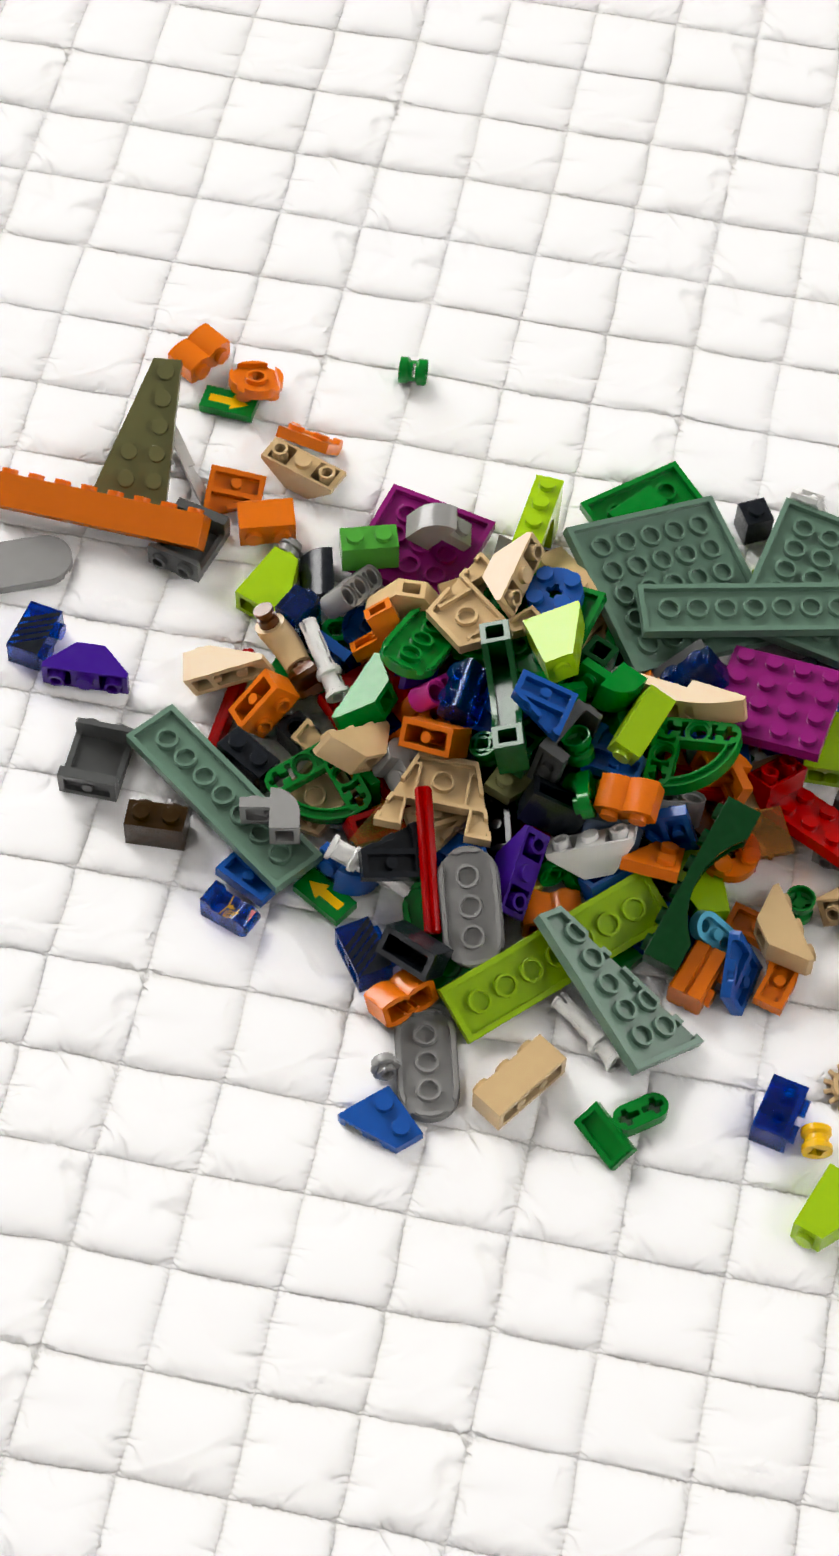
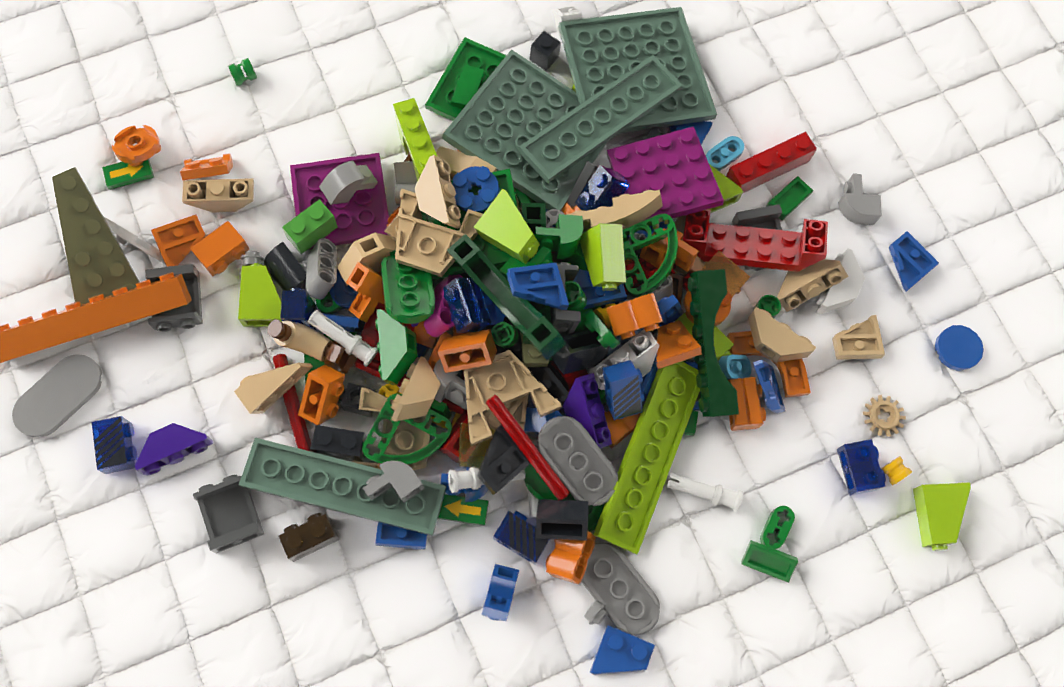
camera: 40 degrees left, 15 degrees up
(200, 352) = (79, 146): orange brick -> none
(228, 910) = (407, 568): clear blue leg -> none
(304, 987) = (500, 593): none -> blue brick
(518, 1081) = (688, 561): tan brick -> none
(567, 868) = (623, 389): none -> blue brick
(619, 1001) = (718, 460): sand green wing -> none

